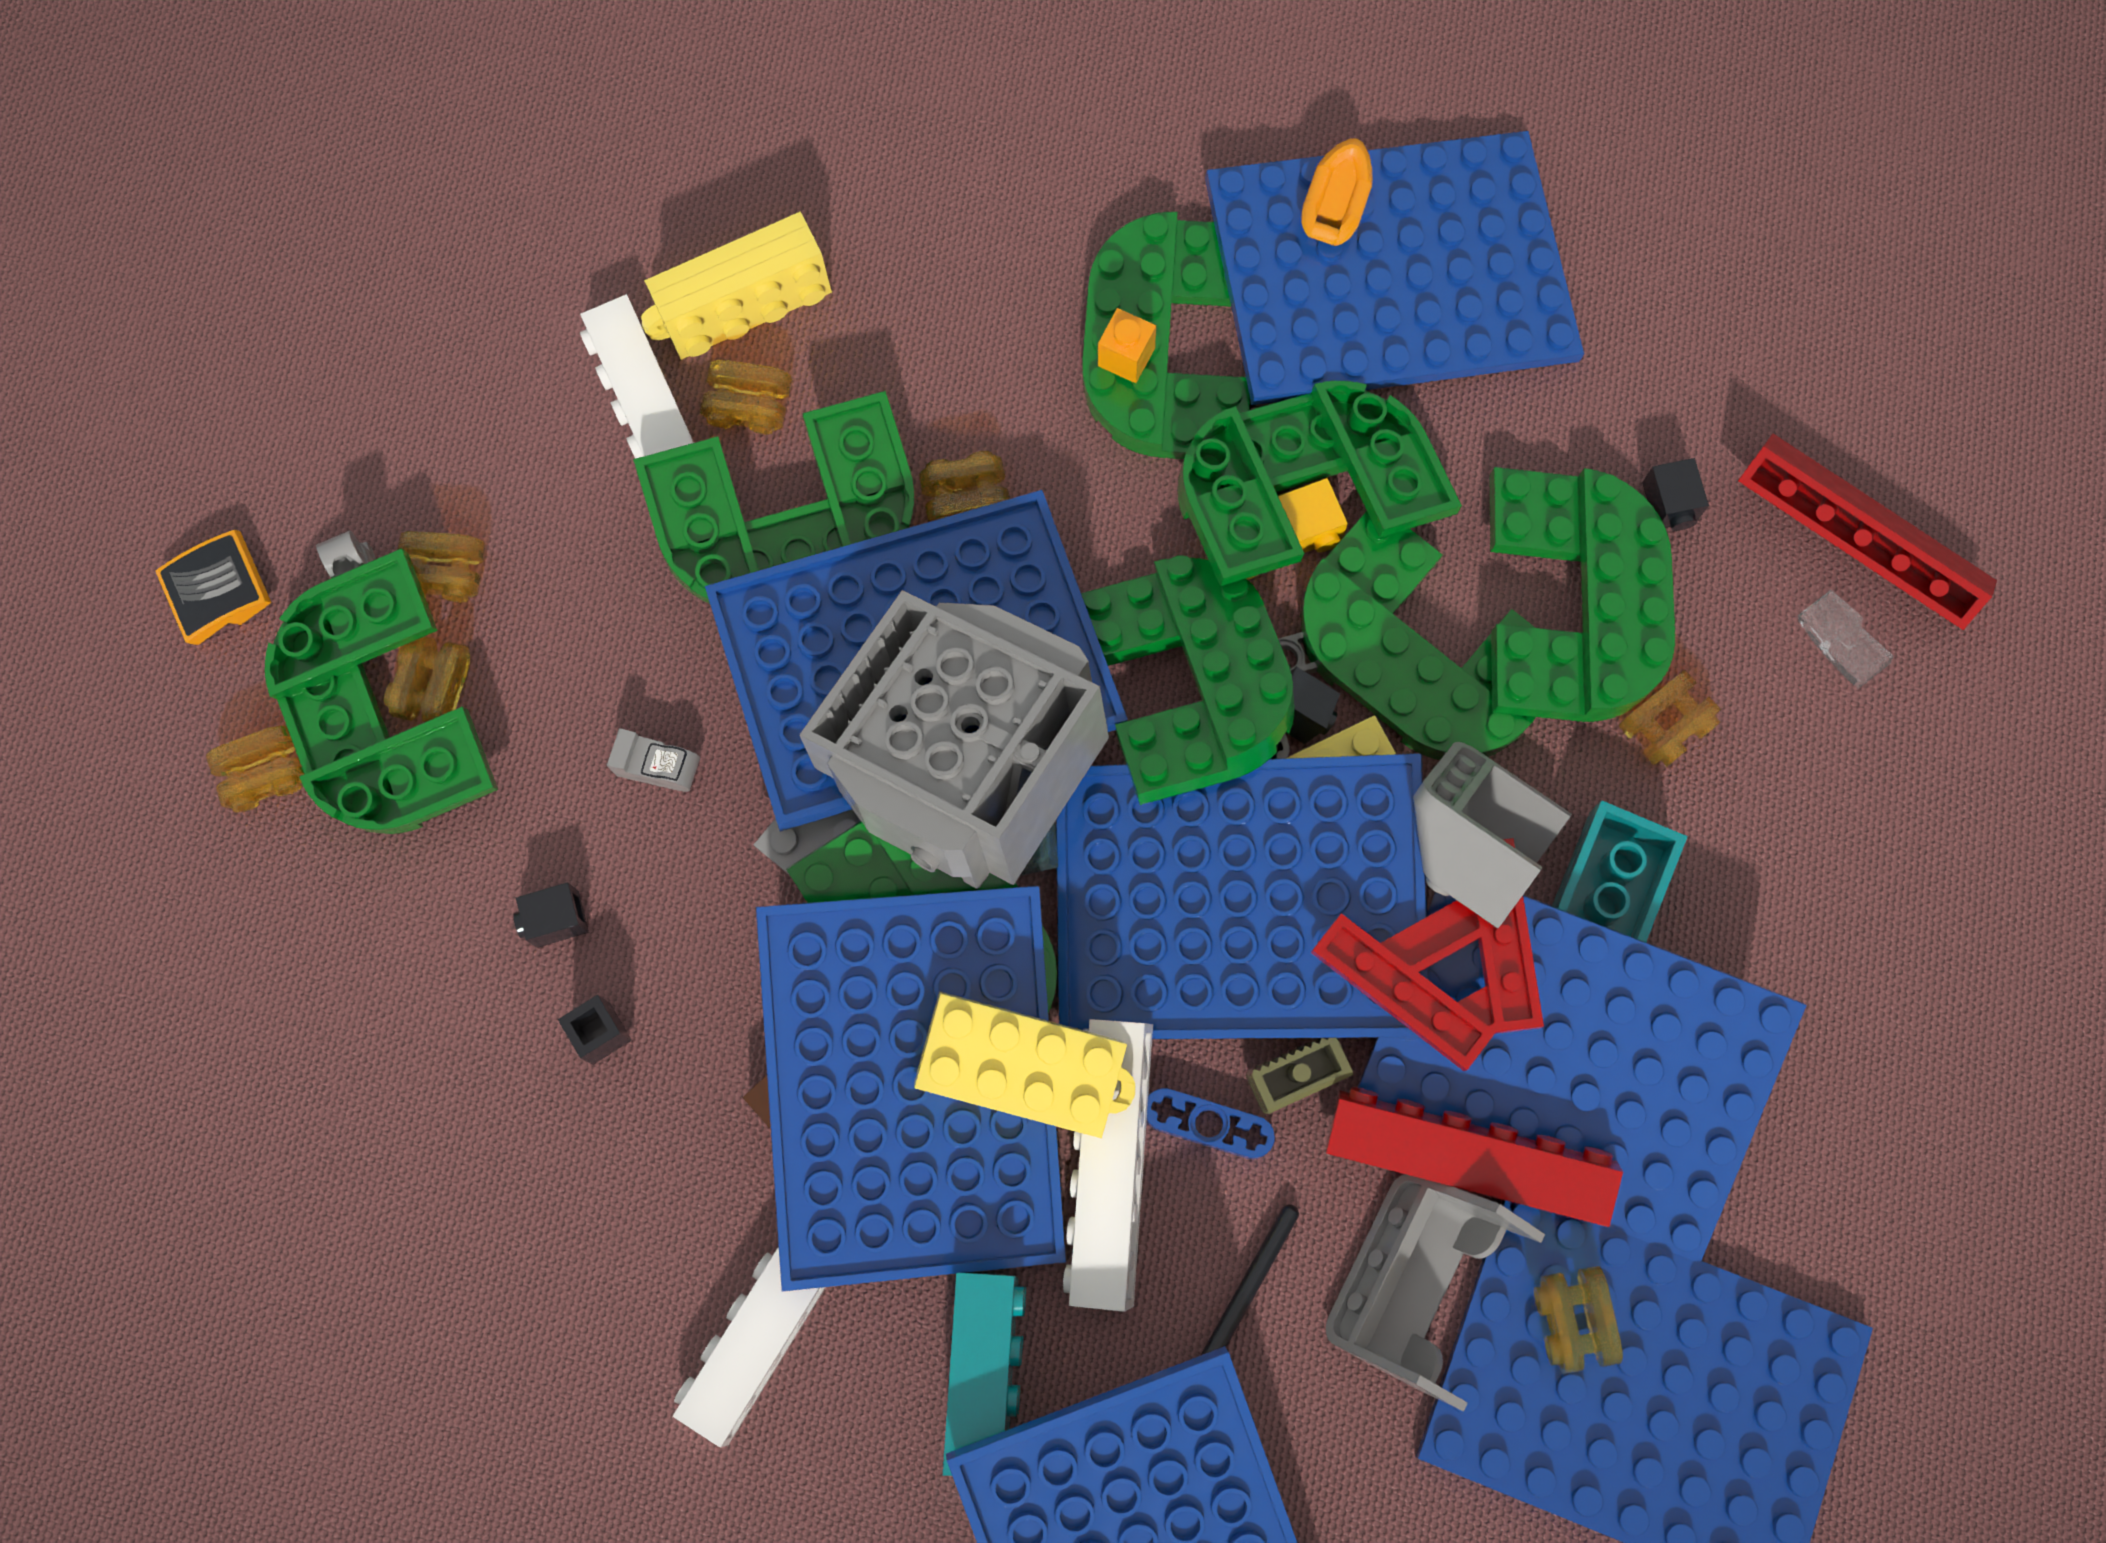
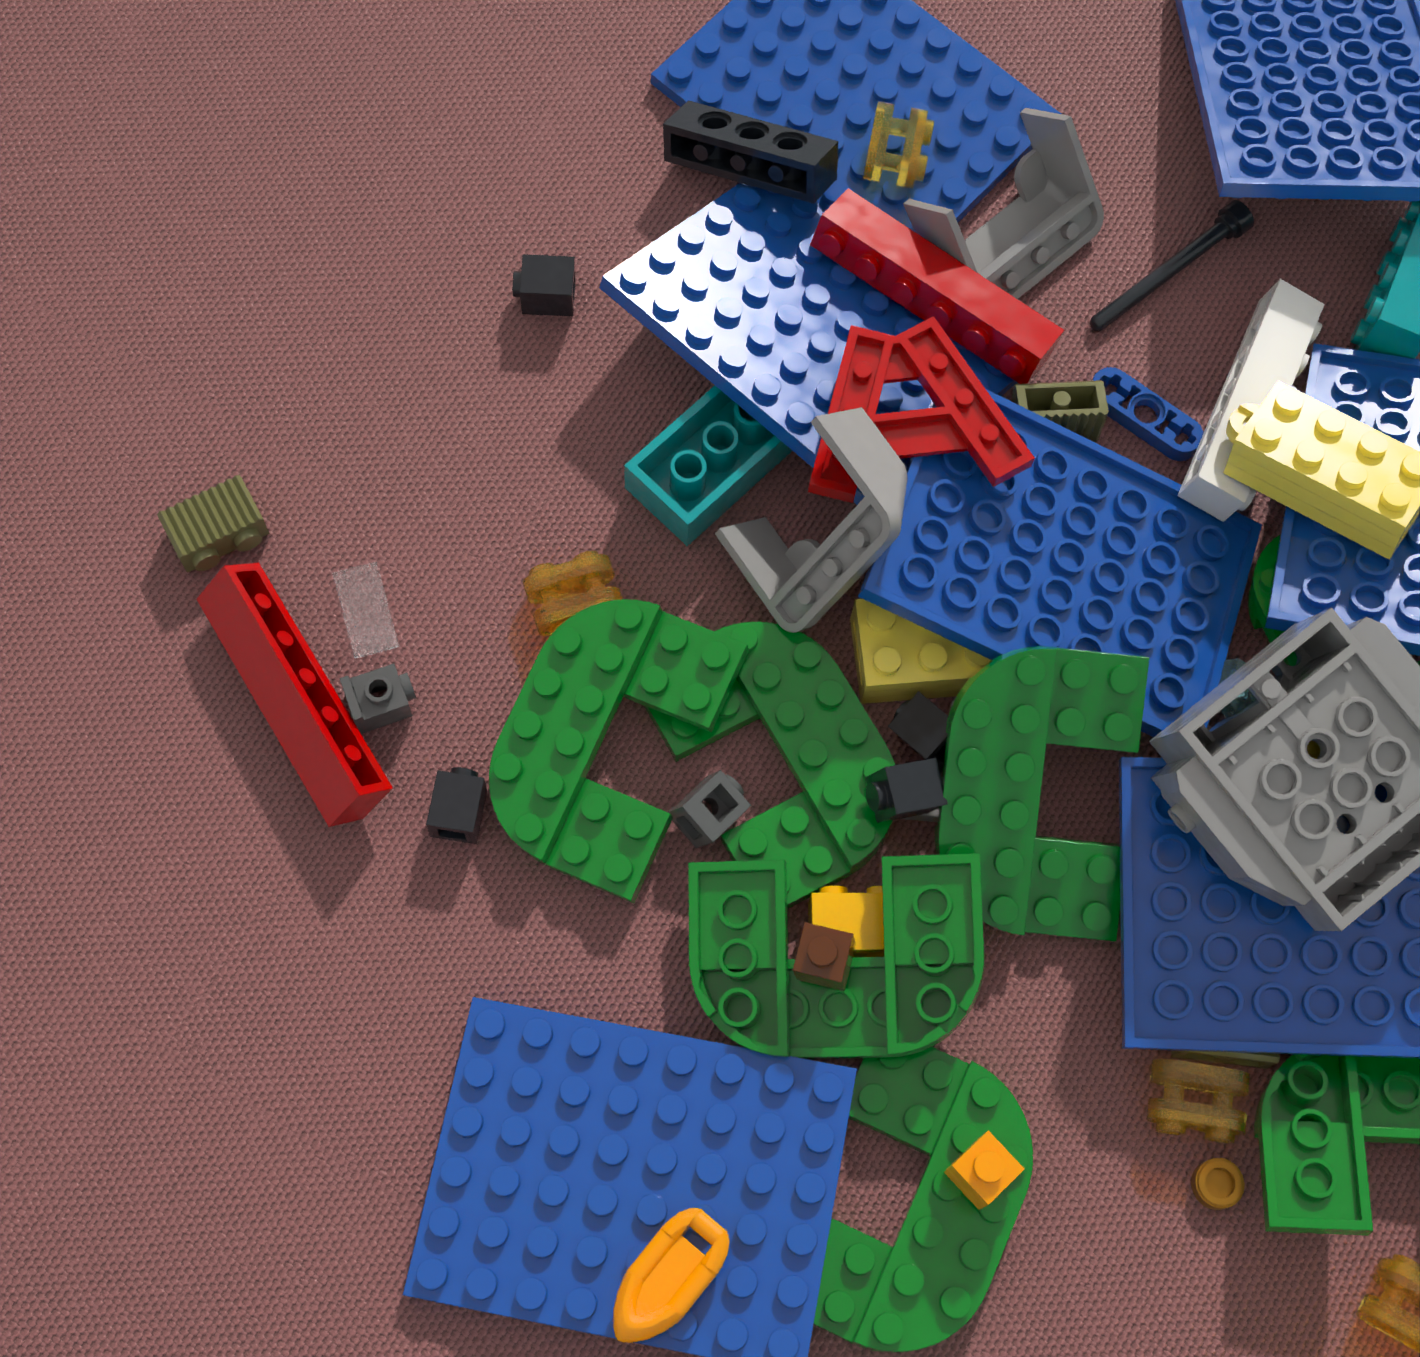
camera: 170 degrees left, 5 degrees down
(927, 439) = (1217, 1184): none -> pearl gold tile
(1305, 622) = (905, 790): none -> black brick
(1318, 457) = (824, 956): none -> reddish brown brick
(1461, 558) = (727, 806): none -> dark grey brick
(1660, 1230) = (751, 151): none -> black brick
(1804, 550) = (376, 712): none -> dark grey brick
(1853, 1024) = (546, 285): none -> black brick
(2022, 658) = (214, 524): none -> olive brick

